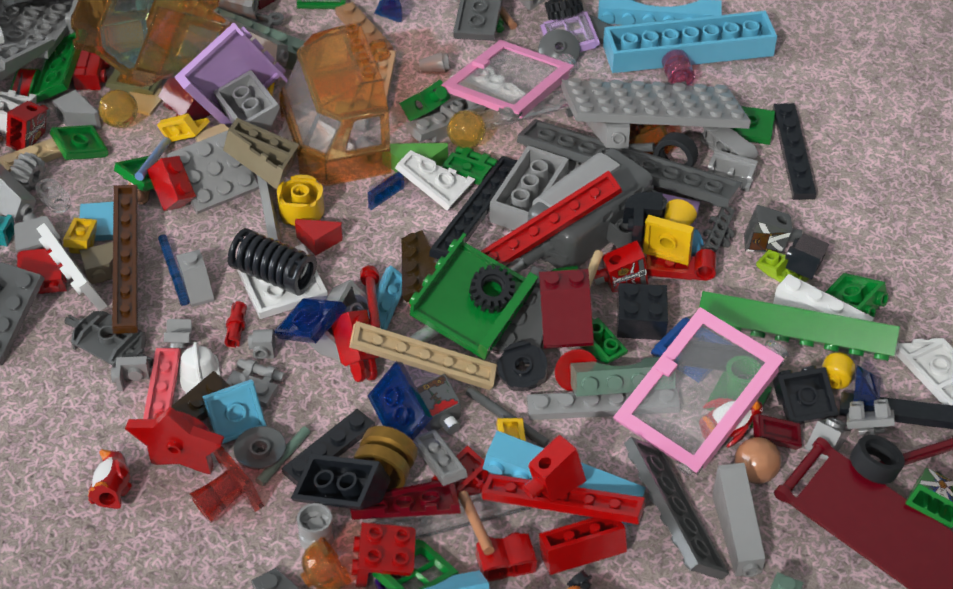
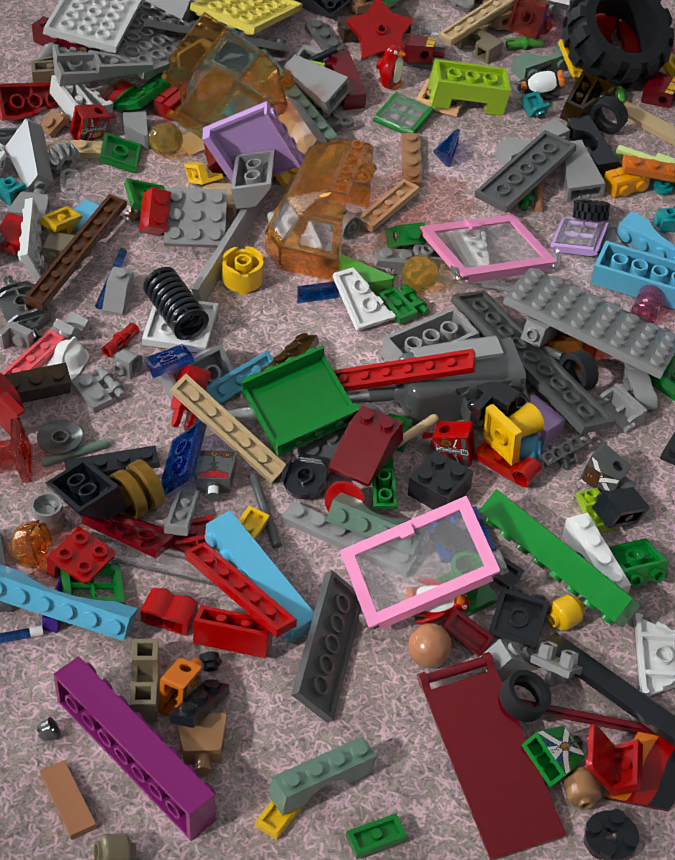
camera: 30 degrees right, 0 degrees up
(152, 159) = (173, 184): medium blue bar -> none
(234, 410) = (60, 400): medium azure tile -> none
(261, 151) = (235, 216): dark tan wedge -> none
(318, 234) = (238, 303): red slope -> none
(369, 277) = (247, 352): red piece -> none
(435, 63) = (445, 211): light grey cone -> none
(474, 209) = (366, 339): black tile -> none
(476, 523) = (163, 572): nougat bar -> none
(491, 275) = (312, 390): black tyre -> none
(555, 471) = (240, 561): red torso -> none
(559, 36) = (568, 240): dark grey dish -> none
(738, 519) = (371, 681): light grey slope -> none
(866, 387) = (578, 636): clear blue slope -> none

